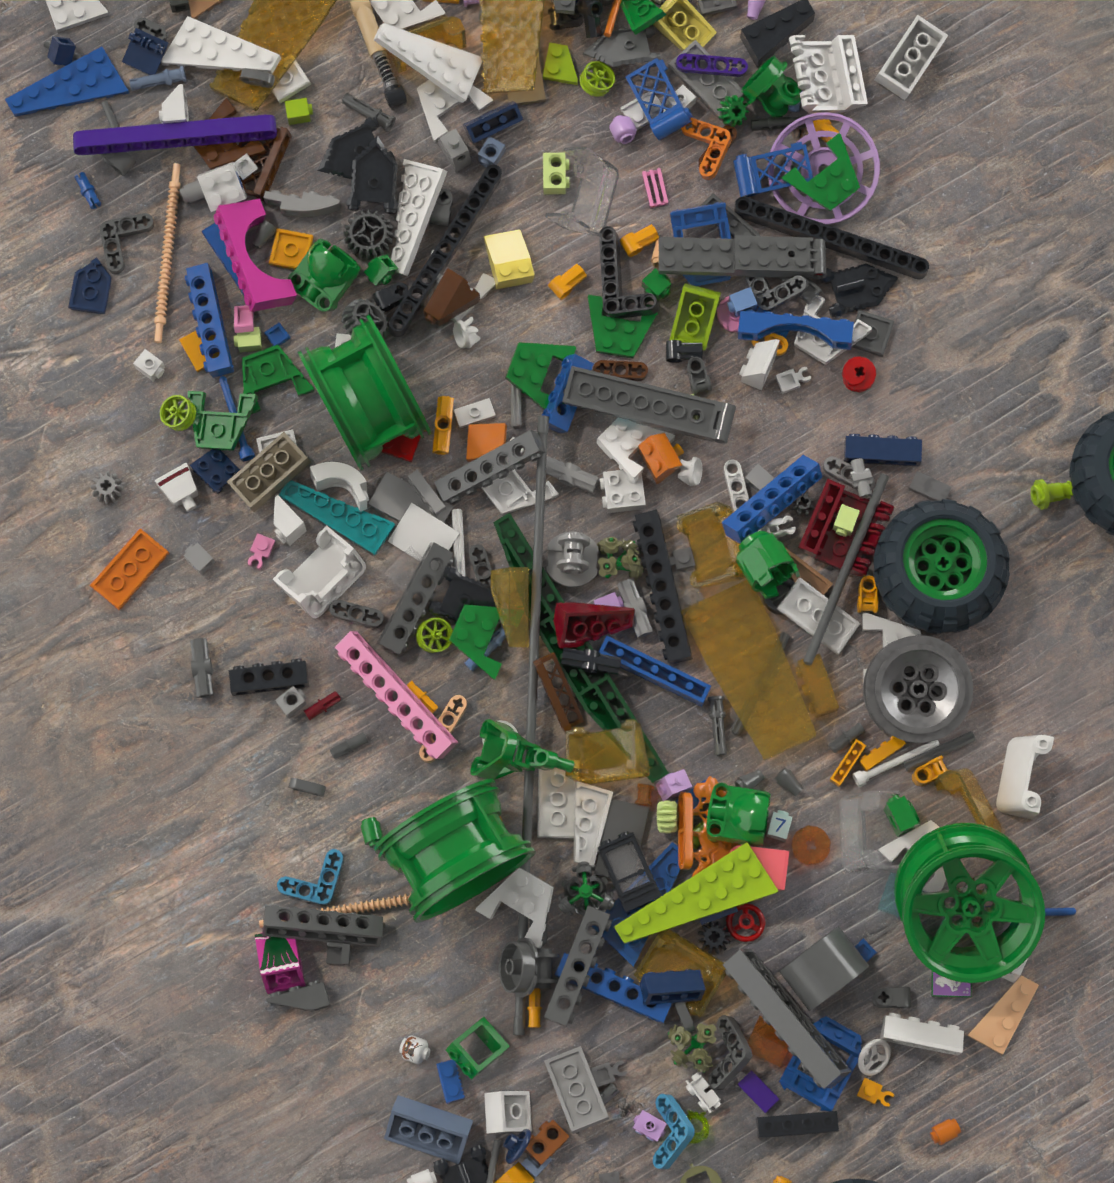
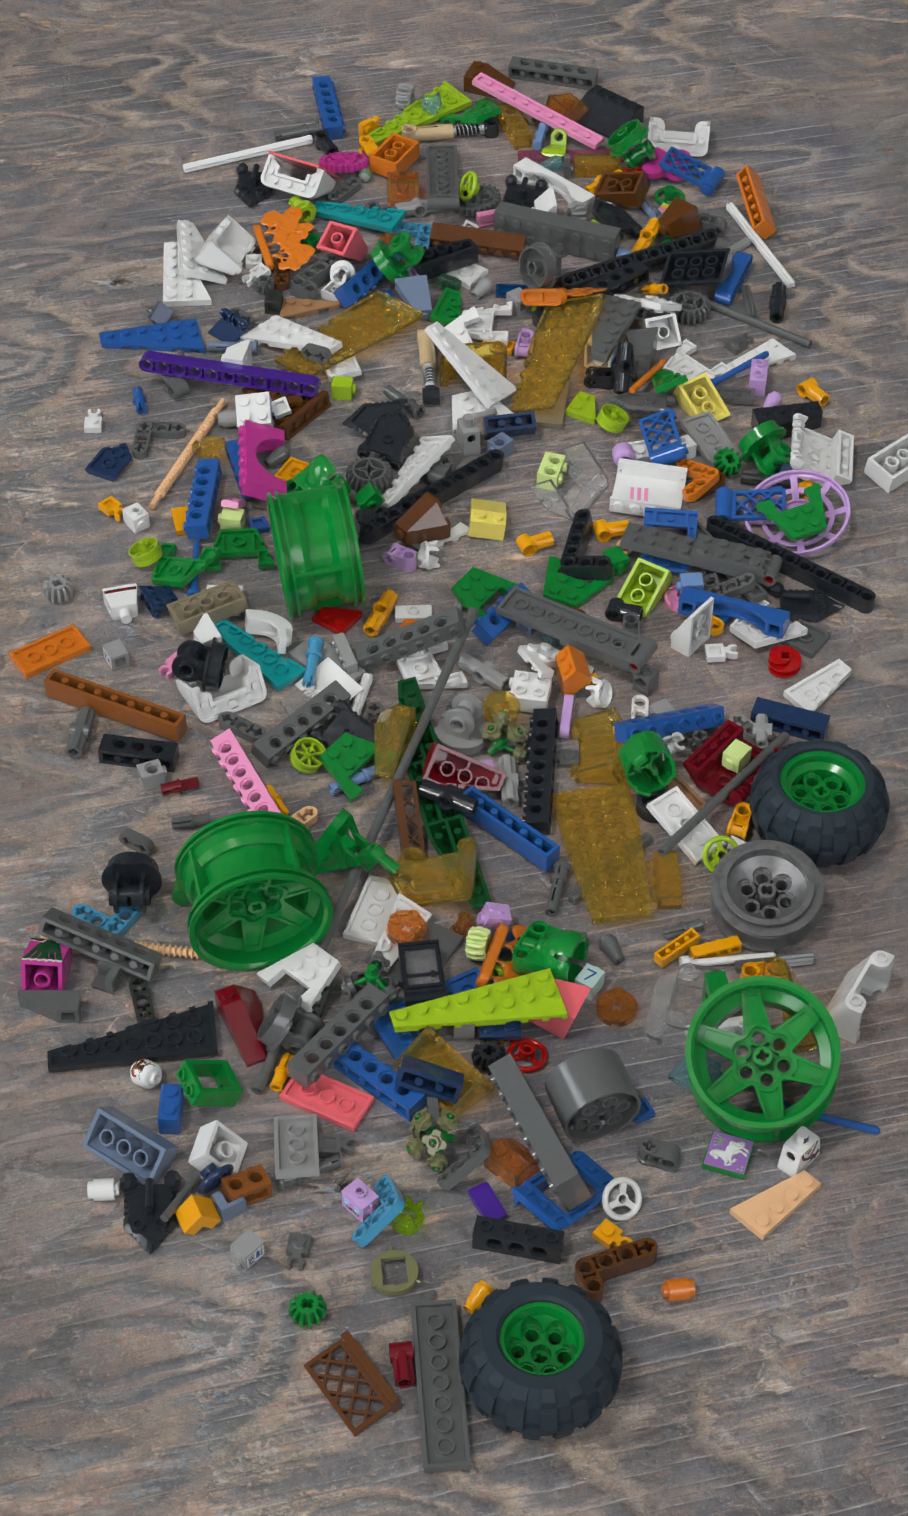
camera: 15 degrees right, 30 degrees down
(50, 236) = (93, 422): none -> white plate
(118, 356) = (111, 506): none -> light orange plate
(188, 246) = (209, 447): none -> clear yellow tile
(224, 627) = (116, 705): none -> dark orange brick
(281, 552) = (201, 663): none -> black piece
(310, 205) = (314, 445): light grey slope -> none
(323, 837) = (131, 880): none -> black piece
(382, 983) = (144, 993): none -> pearl dark grey beam
(397, 505) = (313, 655): none -> dark azure pin
(419, 1002) = (163, 1039): none -> black wing
(434, 342) = (401, 558): none -> lavender piece
(479, 959) = (243, 1017): none -> dark red wedge
(586, 819) = (407, 918): none -> clear orange plate
(591, 1025) = (330, 1101): none -> coral tile
(602, 521) = (501, 701): none -> clear yellow tile
(666, 507) = (566, 716): none -> lavender beam
(678, 167) = (663, 485): none -> white panel
(707, 1099) = (431, 1194): white hinge -> none
(711, 62) = (718, 426): dark purple beam -> none
(733, 441) = (646, 680): none -> dark grey brick
(859, 642) = (710, 865): none -> lime piece
(887, 1123) = (641, 1255): none -> reddish brown beam
(897, 400) = (818, 687): none -> white wing
(922, 1035) = (680, 1194): white slope -> none

